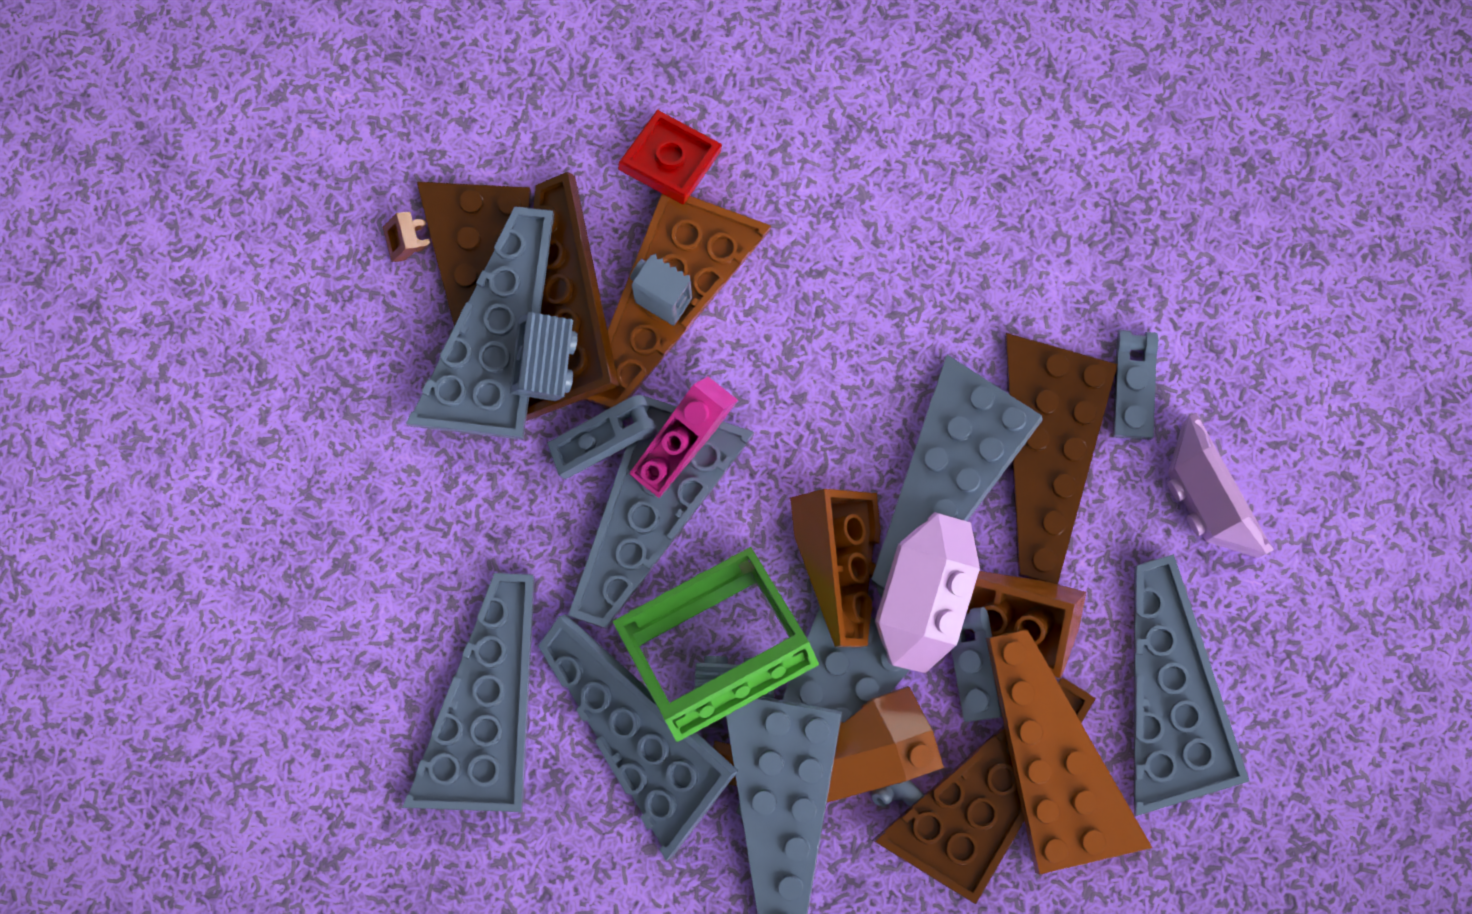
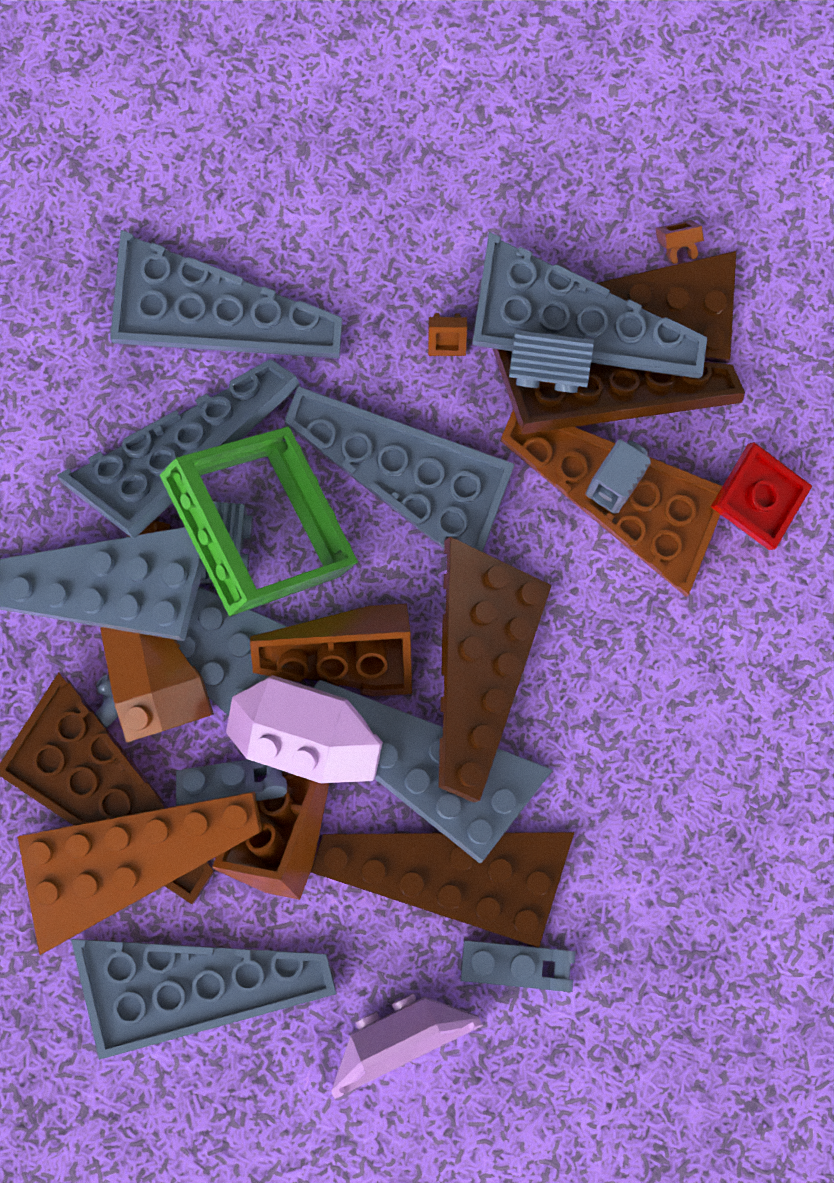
camera: 85 degrees right, 0 degrees up
(510, 466) = (447, 335): none -> dark orange tile
(601, 436) = (473, 421): sand blue plate -> none
(683, 435) = (472, 498): dark pink slope -> none
(837, 419) = (484, 653): none -> reddish brown wing

